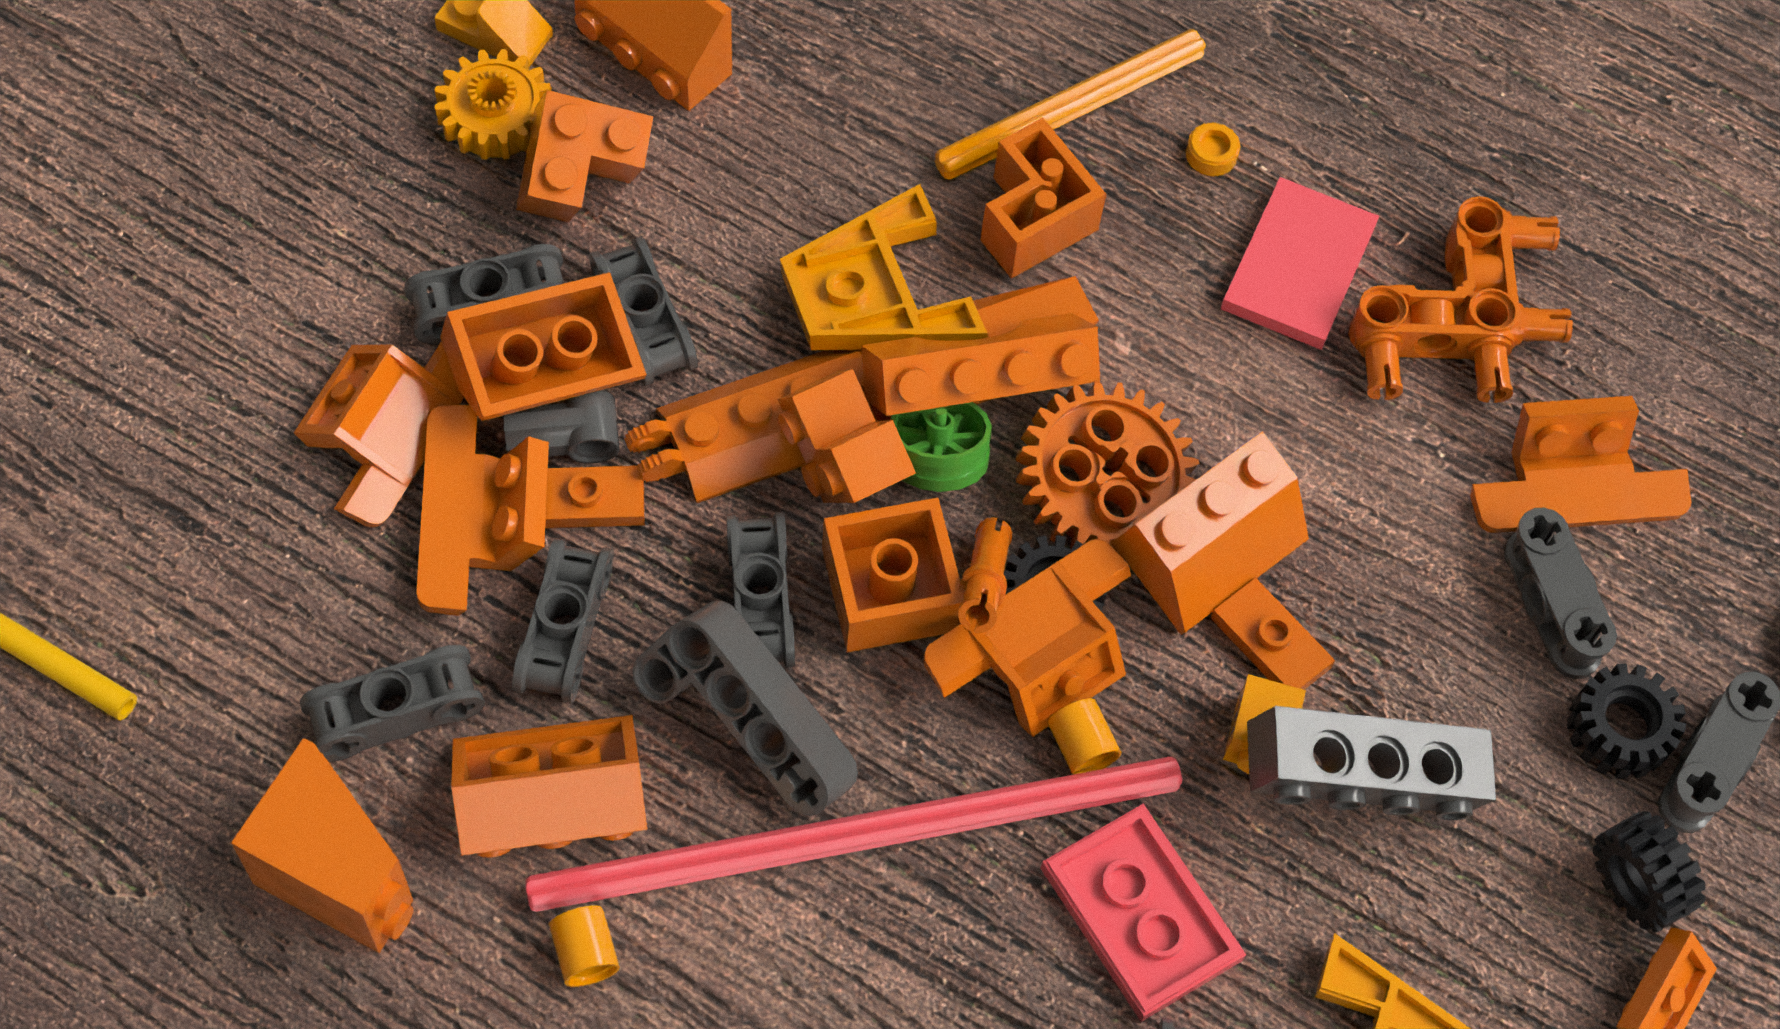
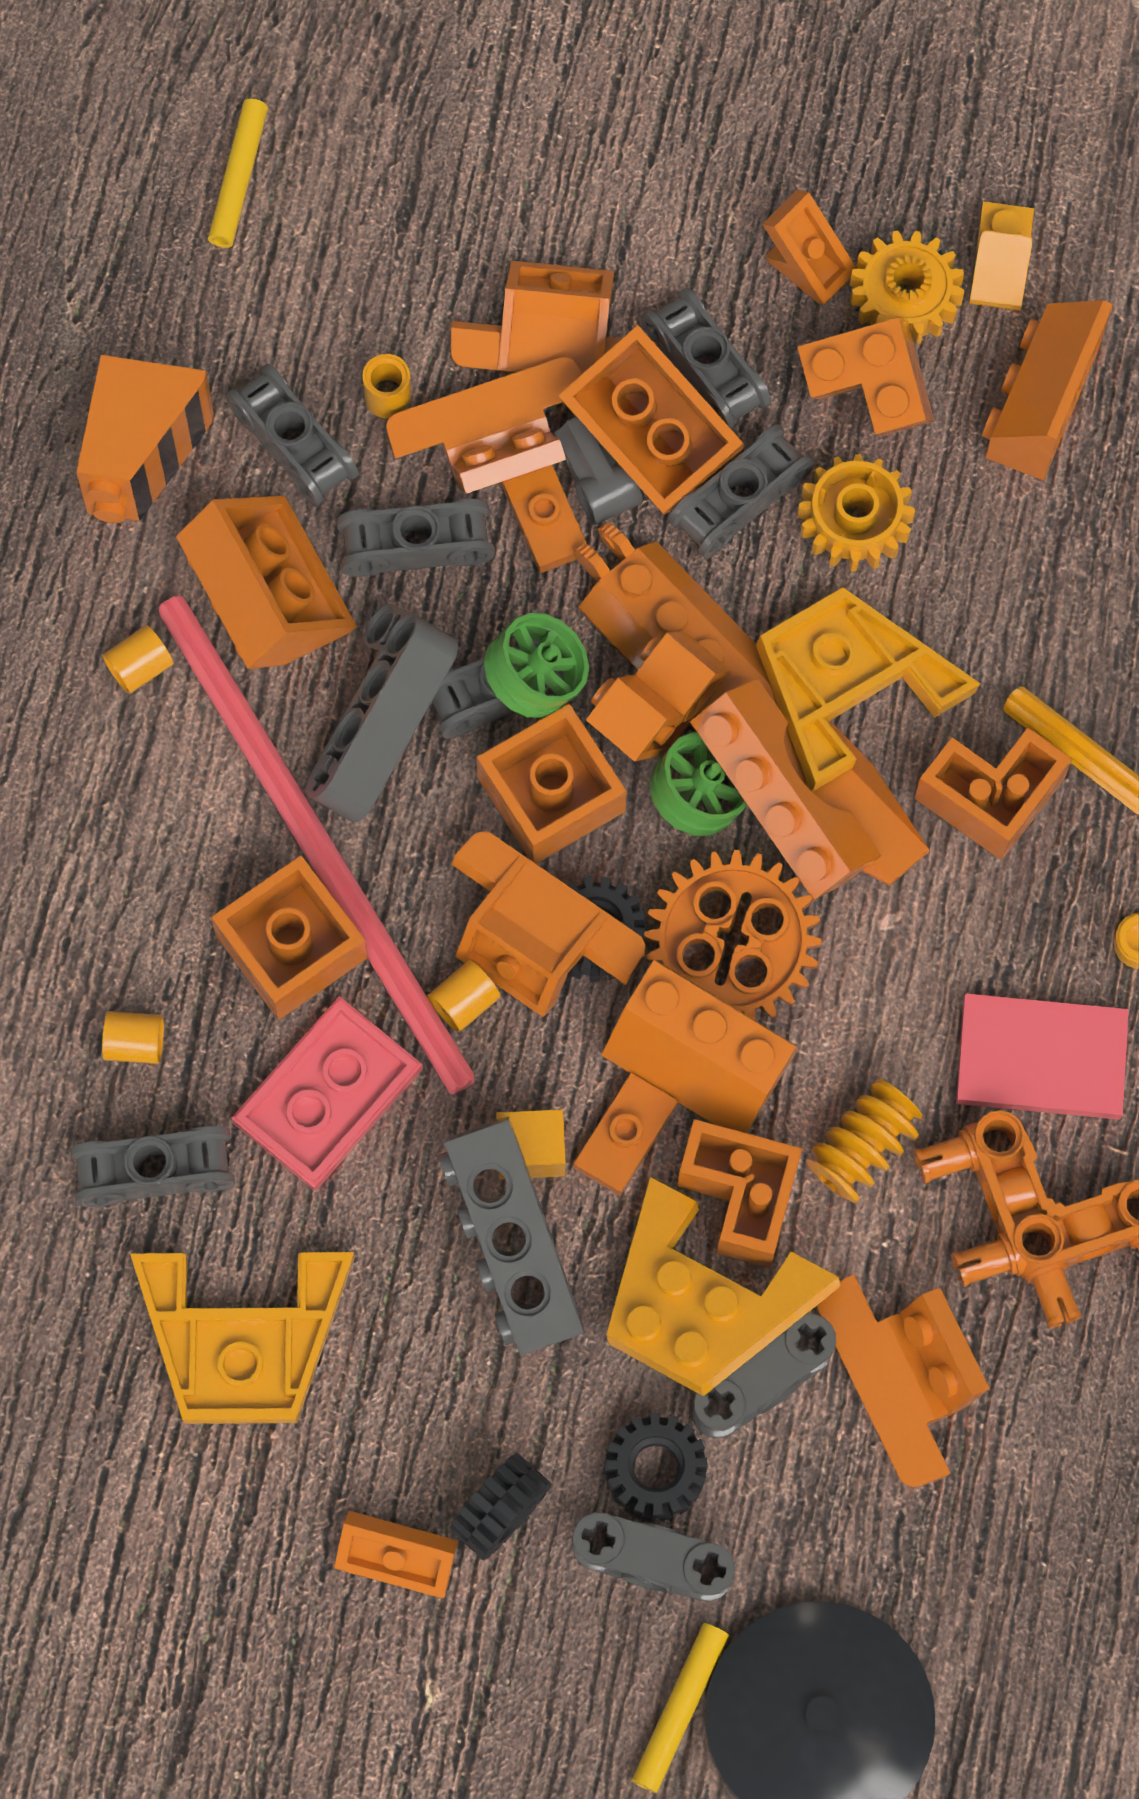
camera: 75 degrees right, 10 degrees up
(378, 572) = (385, 368): none -> light orange beam
(413, 170) = (807, 248): none -> orange slope
(681, 224) = (850, 537): none -> light orange gear
(775, 530) = (524, 685): none -> bright green wheel
(972, 882) = (289, 937): none -> orange brick
(985, 579) = (554, 856): orange pin -> none
(1346, 426) = (864, 1140): none -> light orange piece
(1377, 531) = (752, 1176): none -> orange brick
(1488, 635) = (692, 1318): none -> light orange wing

